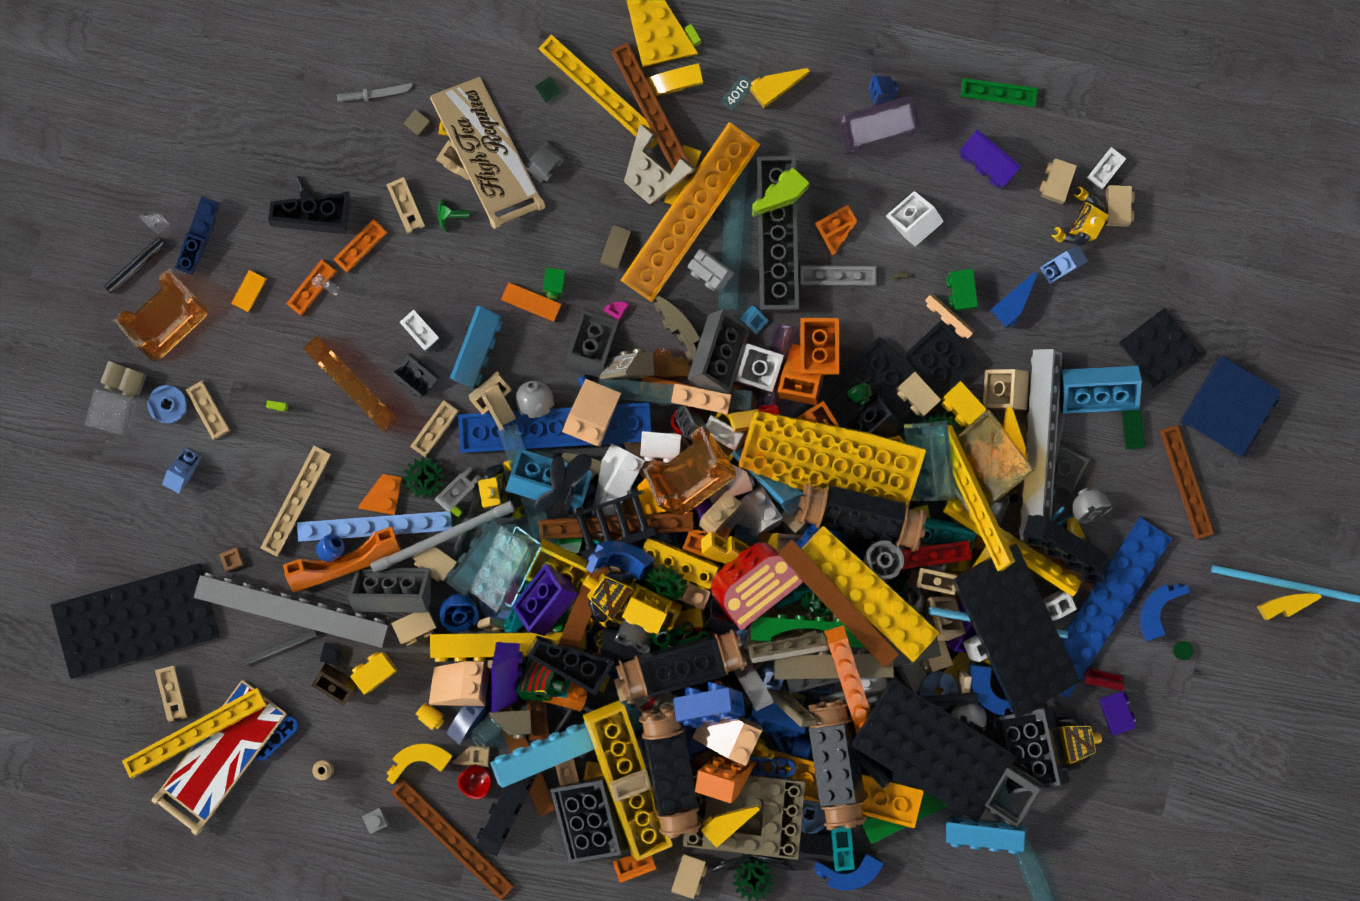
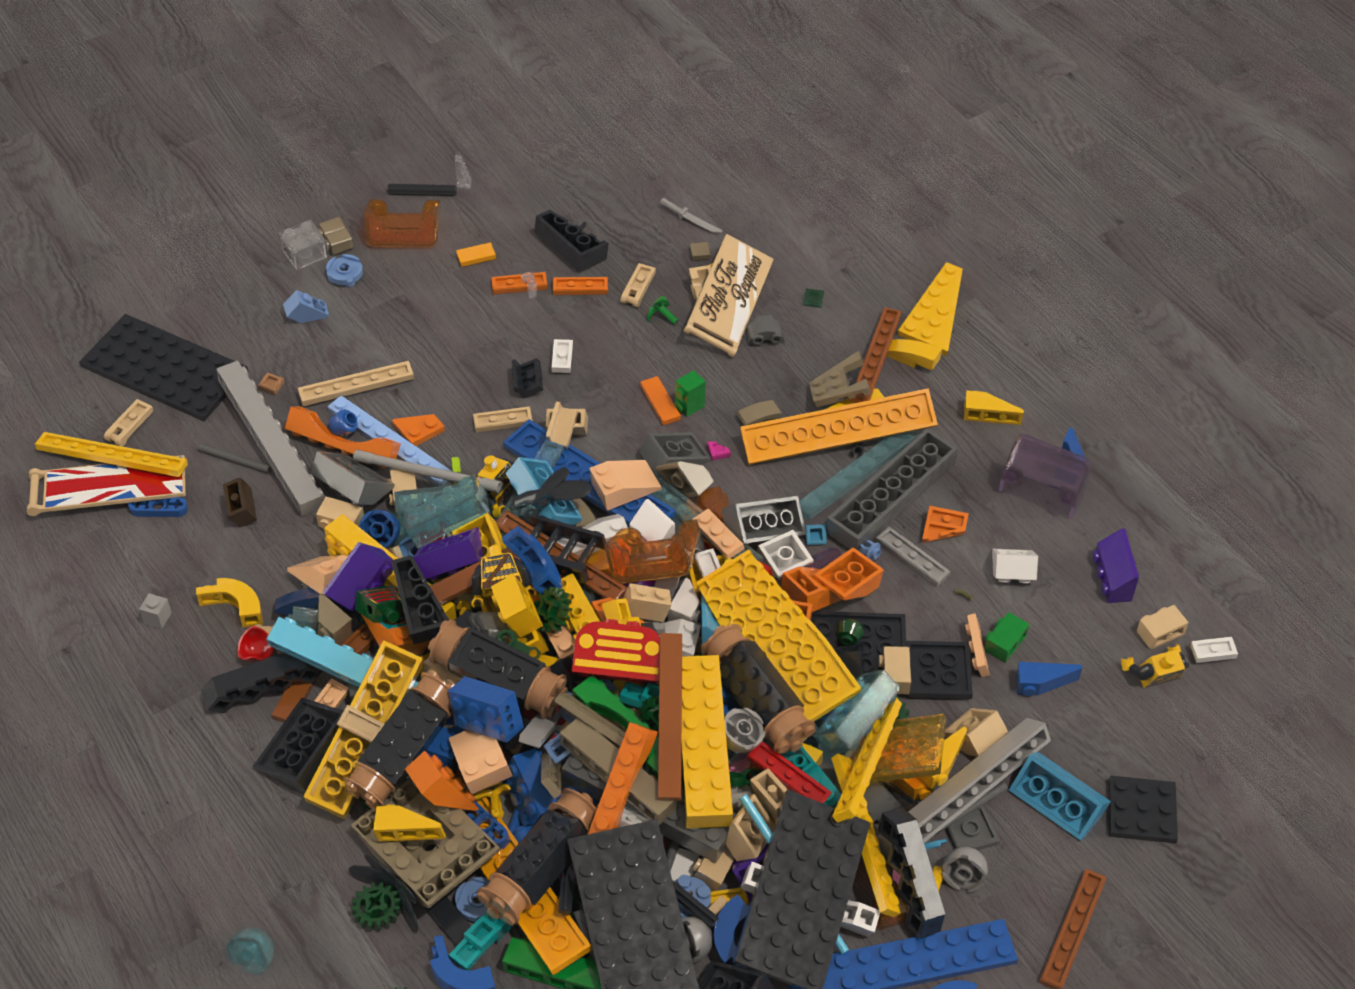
camera: 45 degrees right, 35 degrees down
(198, 235) = (482, 203): dark blue slope -> none
(208, 410) = (366, 294): tan tile -> none
(279, 406) = (413, 323): lime tile -> none
(329, 769) = (162, 547): tan brick -> none
(331, 654) = (262, 489): black plate -> none
(350, 384) = (477, 348): clear orange arch -> none
(374, 672) = (275, 516): yellow brick -> none
(415, 478) = (459, 437): dark green gear -> none
(430, 716) = (278, 580): yellow brick -> none
(452, 839) = (191, 678): dark orange tile -> none
(457, 490) = (468, 454): light grey hinge -> none
(476, 347) = (590, 385): dark azure slope -> none
(534, 399) = (594, 445): light grey cylinder -> none
(594, 86) = (849, 316): yellow plate -> none
(629, 867) = (297, 813): orange hinge -> none
(675, 322) = (753, 484): dark tan slope -> none
(689, 875) = (329, 856): tan brick -> none
(692, 35) = (954, 338): lime tile -> none
(710, 270) = (814, 472): light grey brick -> none
(737, 92) = (950, 396): clear light blue sticker -> none
(785, 192) = (919, 450): lime slope -> none
(809, 300) = (871, 550): none -> medium blue plate
(962, 405) = (925, 697): yellow brick -> none
(999, 92) = (1167, 540): green tile -> none
(1064, 264) = (1113, 684): medium blue slope -> none
(1119, 205) = (1200, 681): tan brick -> none
(1133, 429) = (1061, 850): dark green tile -> none
(1231, 406) = (1171, 900): dark blue panel -> none

